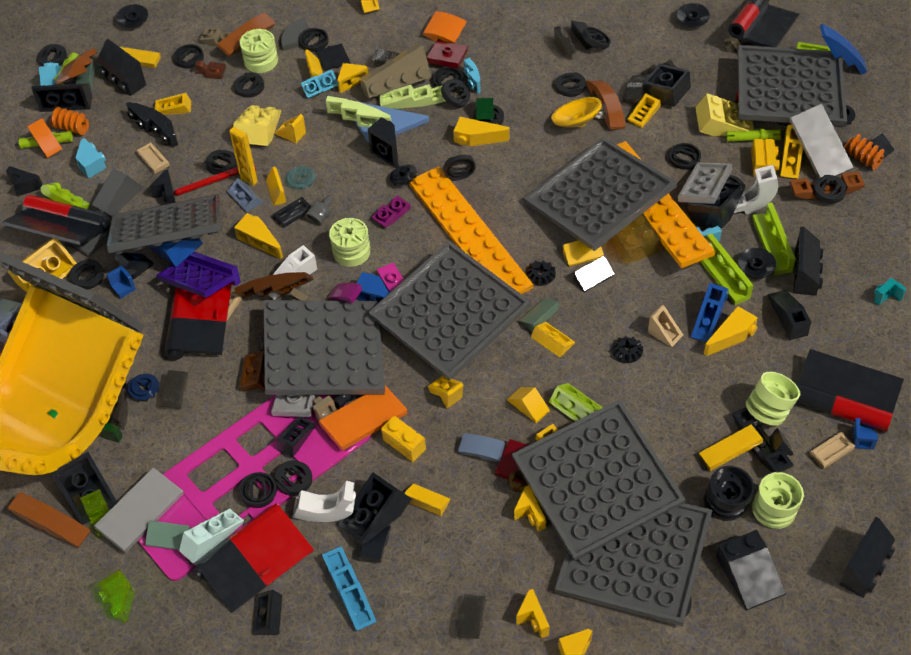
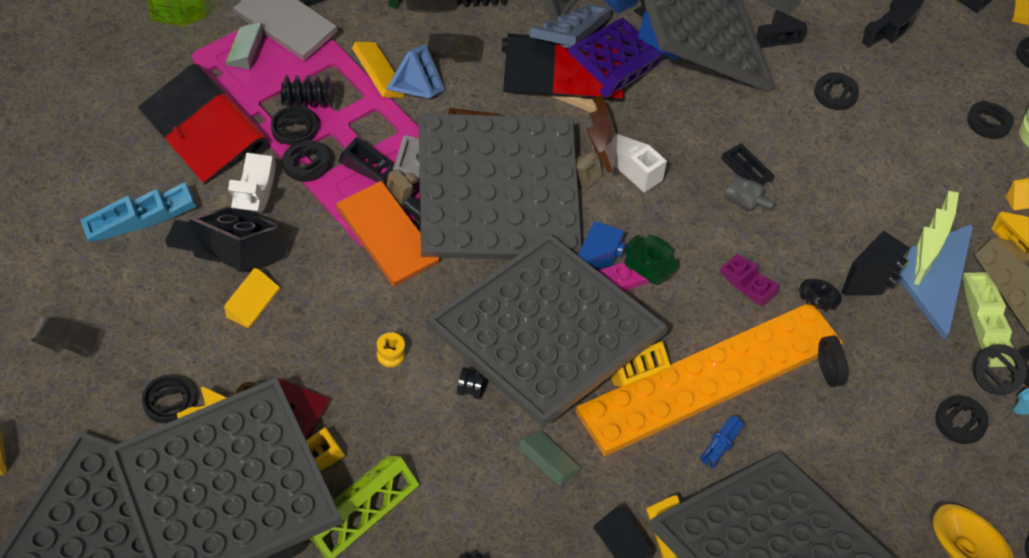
camera: 85 degrees right, 0 degrees up
(144, 380) = (462, 15): dark blue gear -> none
(152, 158) = (839, 21): tan tile -> none
(163, 305) = (572, 27): none -> sand blue wing
(178, 104) = (938, 39): yellow slope -> none
(196, 438) = (376, 67): none -> yellow tile
(204, 182) = (827, 117): red piece -> none
(208, 408) = (417, 75): none -> medium blue slope
(209, 534) = (236, 78): light aqua slope -> none
(212, 70) = (1012, 79): copper plate -> none
(226, 480) = (307, 91): none -> black piece
(243, 156) = (818, 87): yellow tile -> none
(244, 195) = (777, 116): sand blue slope -> none
(255, 233) = (700, 126): yellow slope -> none
(258, 124) = (906, 124): light yellow slope -> none
(267, 613) = (127, 139): black slope -> none
(275, 187) = (790, 148): yellow slope -> none
(292, 129) = (900, 166): yellow slope -> none
(298, 172) = (822, 175): clear light blue gear -> none
(320, 84) = (997, 195): medium azure slope -> none
(345, 292) = (588, 213): magenta slope -> none
(350, 242) = (682, 219): yellowish green wheel -> none
(381, 260) = (656, 269): none -> dark green plate
(403, 438) = (343, 273): yellow brick -> none
(448, 390) = (412, 325): yellow slope -> none
(463, 410) = (387, 356): none -> yellow wheel
(475, 132) = (915, 395): yellow slope -> none
(481, 446) = (317, 363): sand blue slope -> none
(484, 108) = (968, 409): dark green slope -> none
(489, 357) = (470, 383): none -> black wheel
(517, 527) = (152, 392): none -> black piece
(518, 226) = (722, 441): none -> blue axle
(529, 403) = (386, 428): yellow slope -> none
(532, 611) = (56, 404): yellow slope -> none
(546, 277) = (619, 470): black gear -> none
(552, 339) = (504, 473): yellow slope -> none

